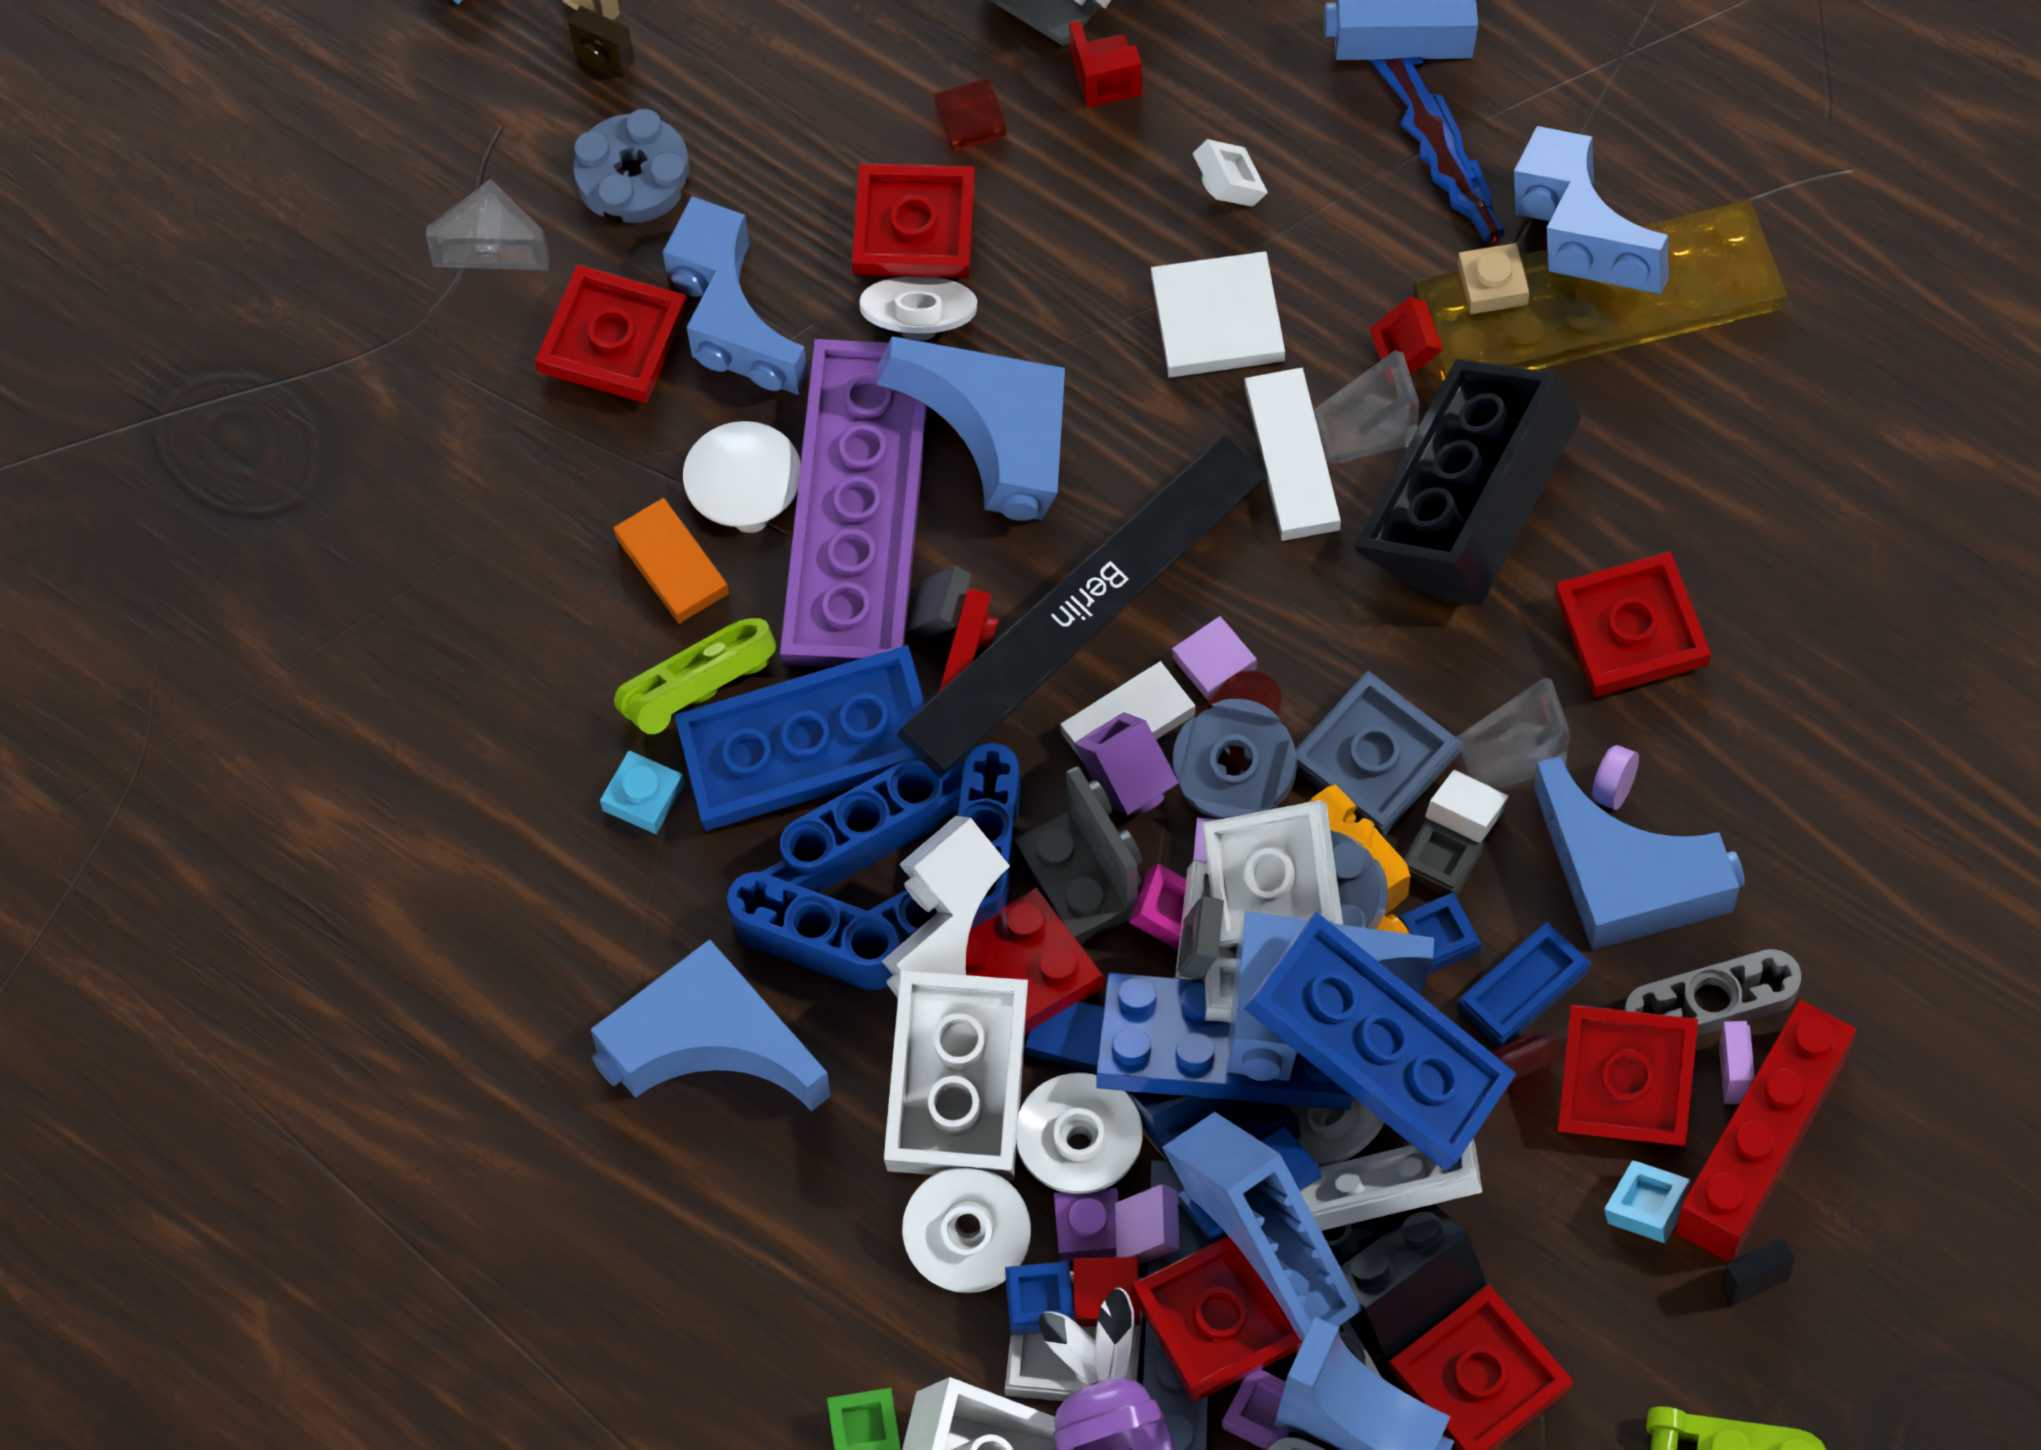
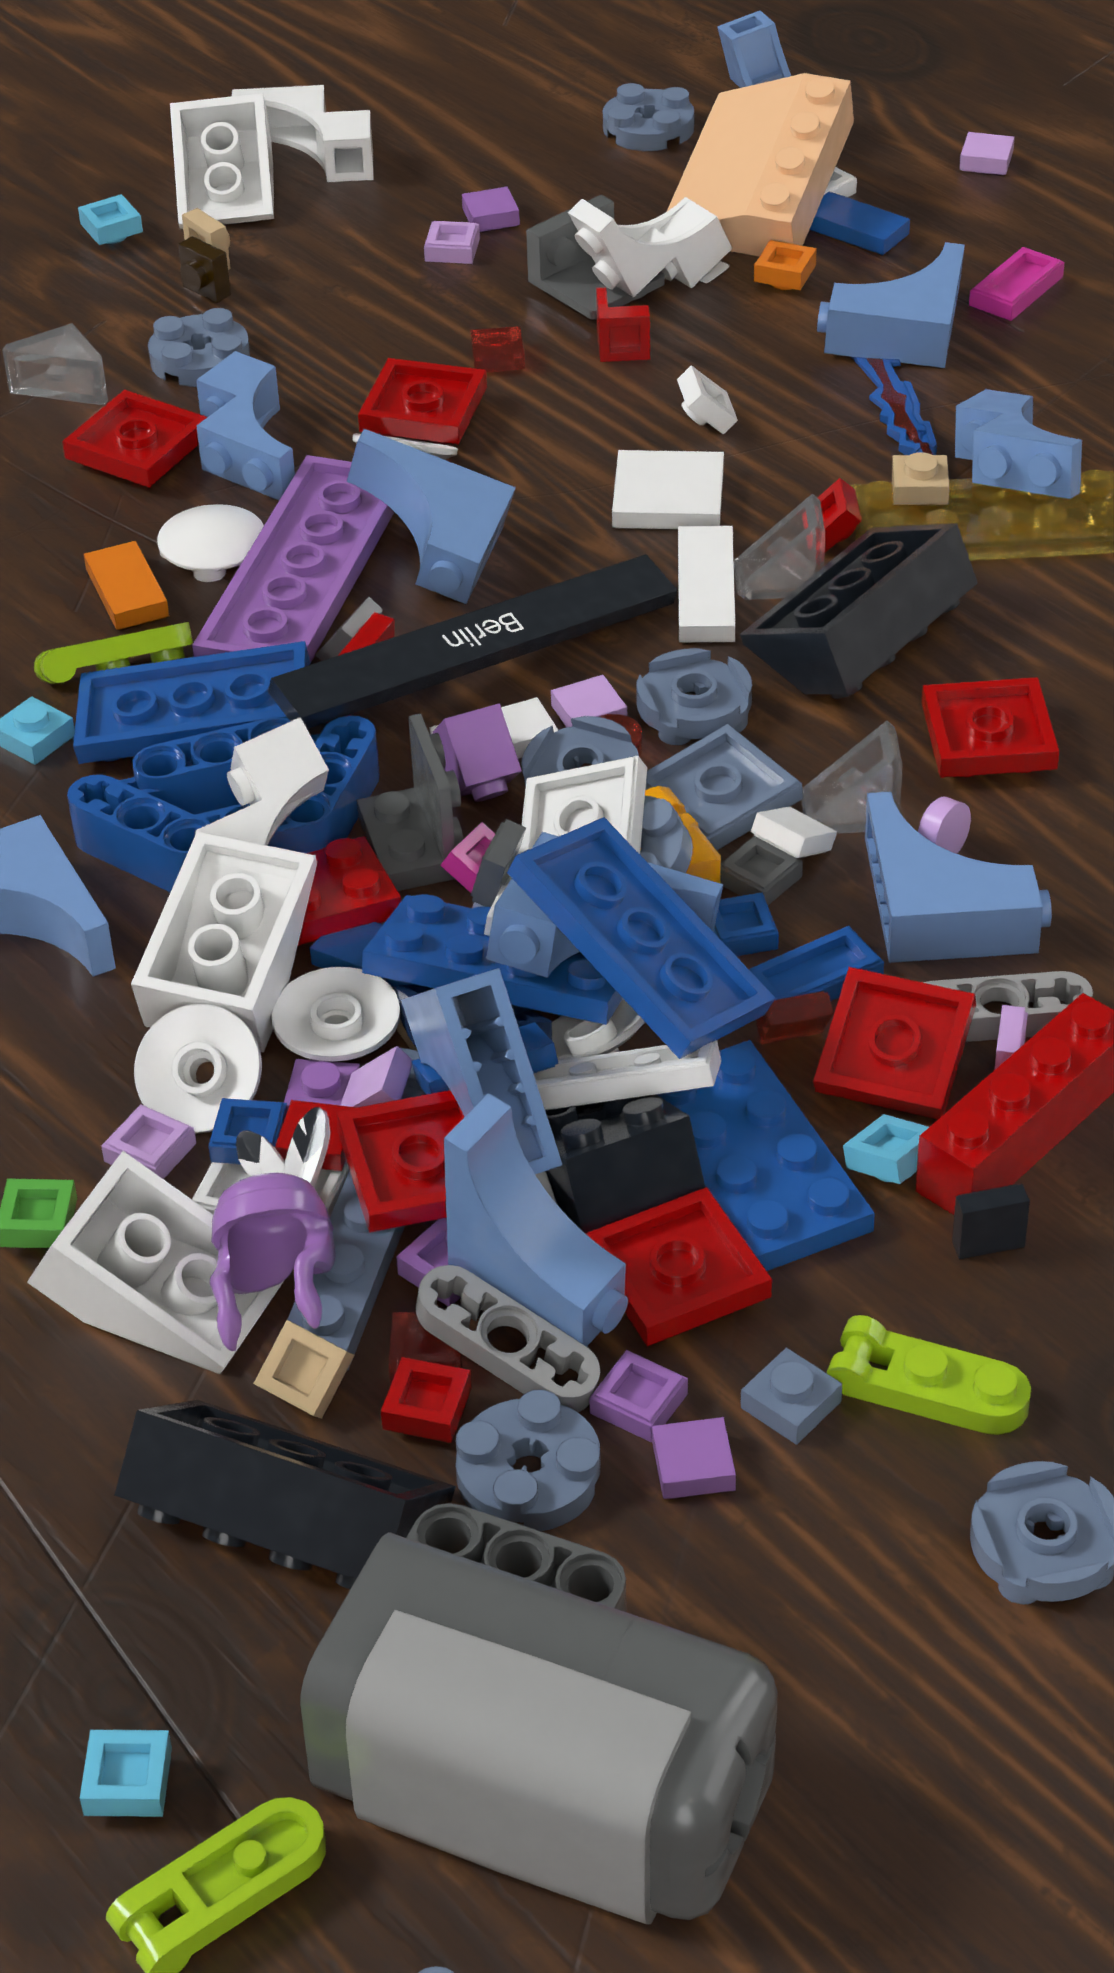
camera: 10 degrees right, 20 degrees down
(939, 1318) = (151, 1140): none -> lavender tile
(1317, 660) = (720, 697): none -> sand blue plate
(1540, 1240) = (770, 1163): none -> blue plate

